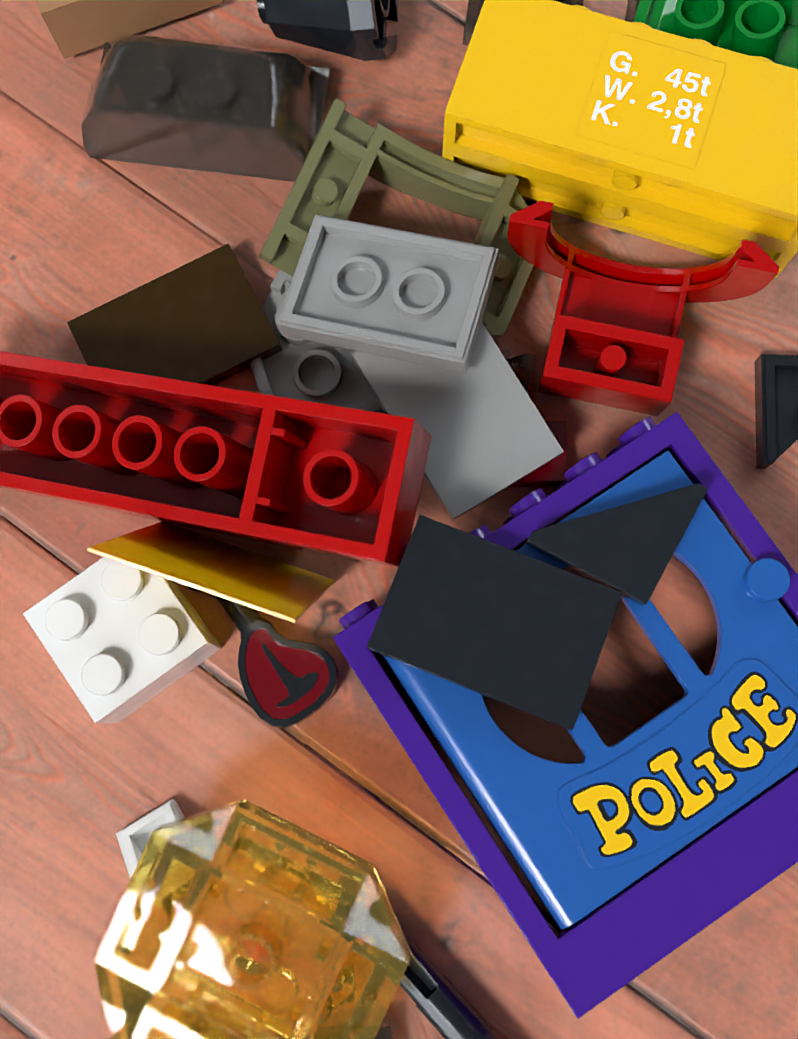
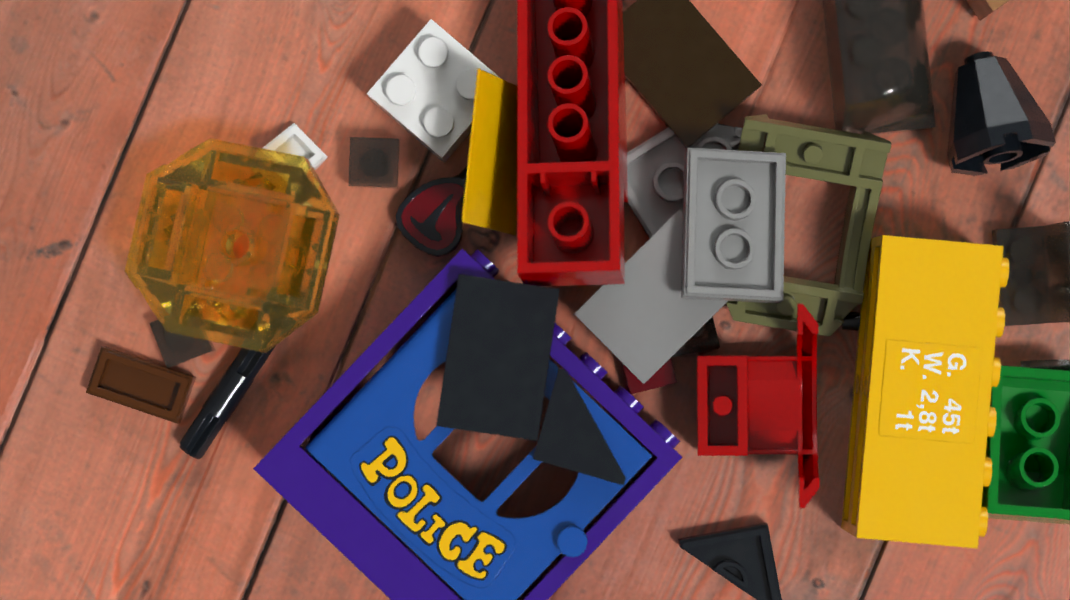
camera: 75 degrees right, 10 degrees up
(194, 737) = (374, 162): none -> clear smoke plate

